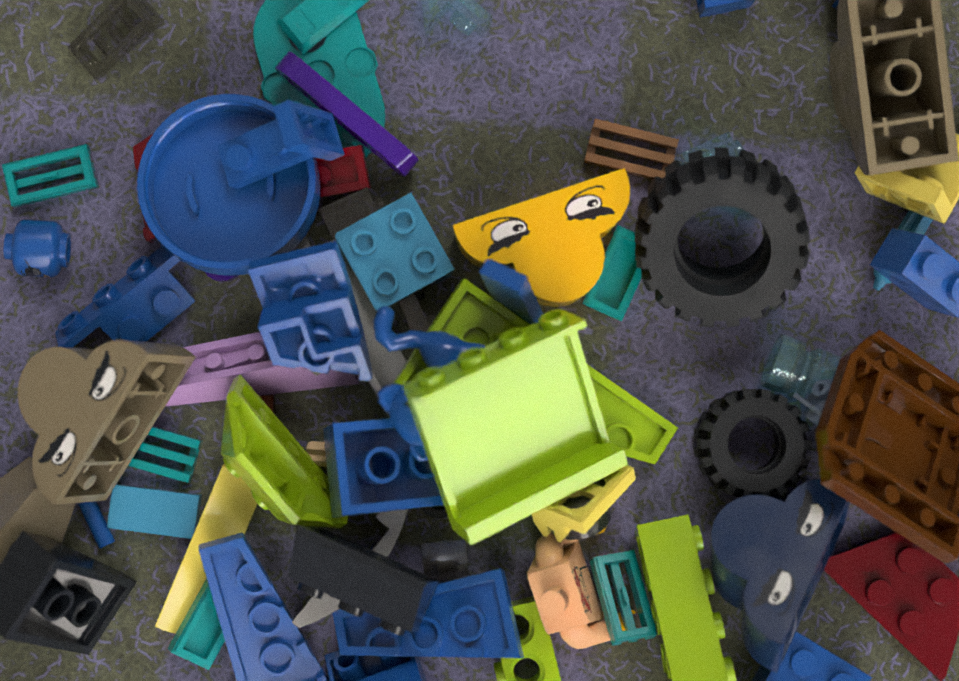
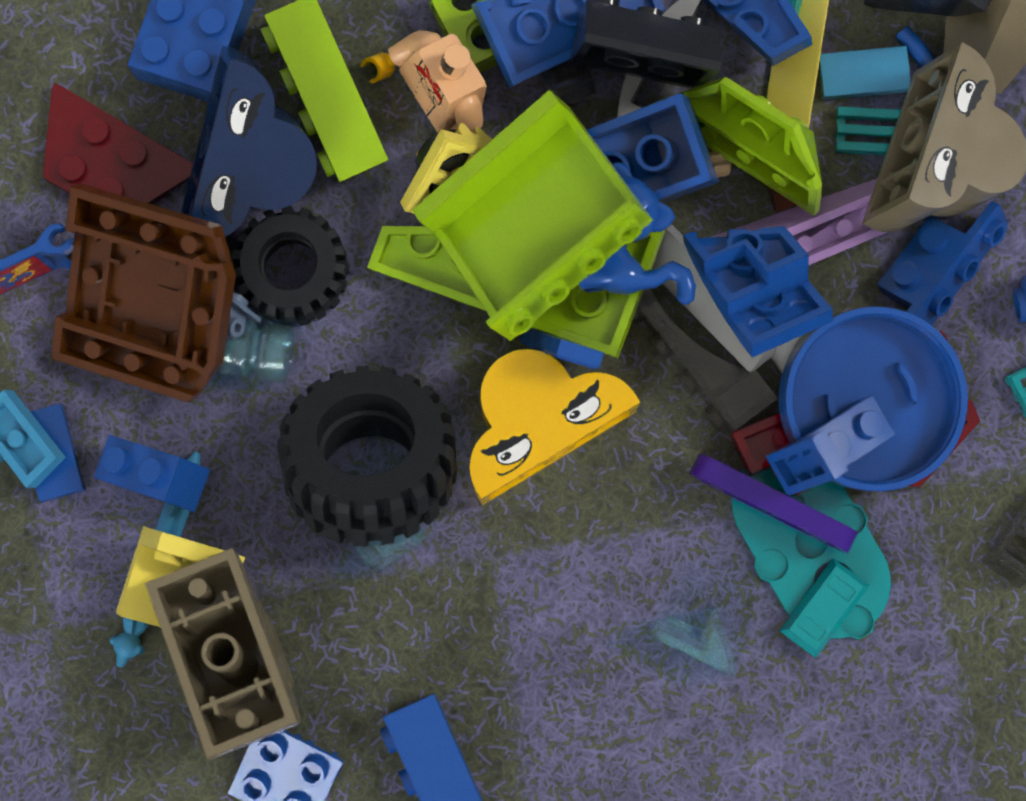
camera: 170 degrees right, 5 degrees down
(394, 252) = (691, 370): dark azure bracket -> none
(607, 602) = (400, 82): teal tile -> none
(618, 278) = (462, 396): teal tile -> none
(635, 134) = (514, 537): medium nougat tile -> none

